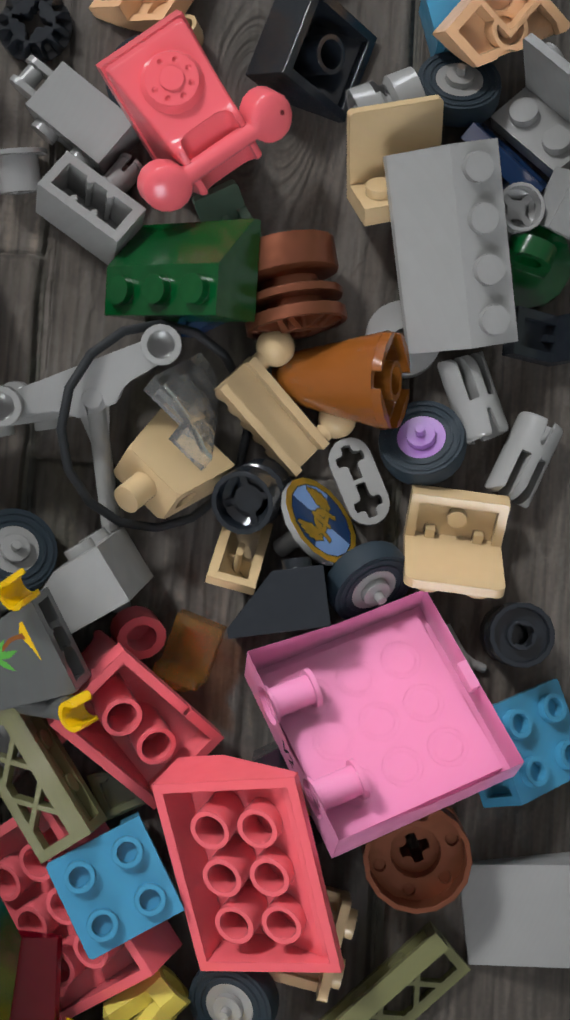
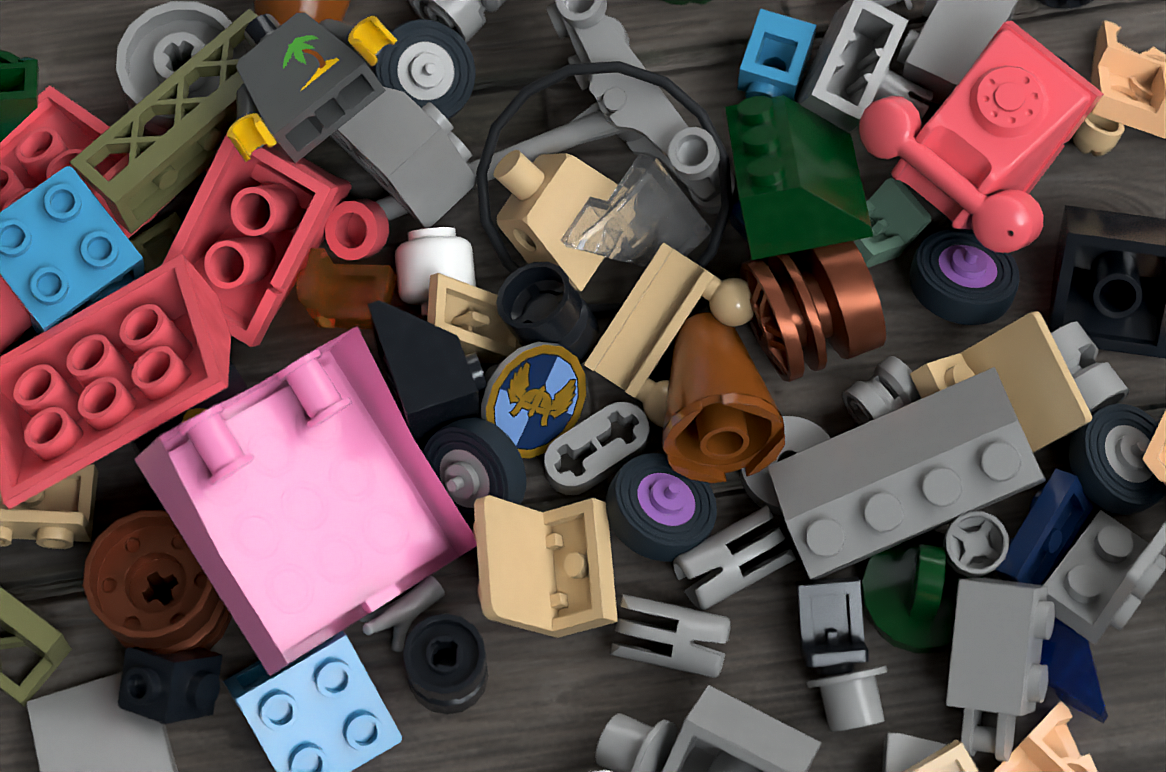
camera: 75 degrees right, 15 degrees down
(58, 254) = (780, 44): none -> dark azure brick
(182, 576) = (430, 253): none -> white head
(288, 170) = (963, 278): none -> black wheel
(368, 253) = (883, 393): none -> light grey wheel
(495, 849) = (170, 685): none -> black bracket

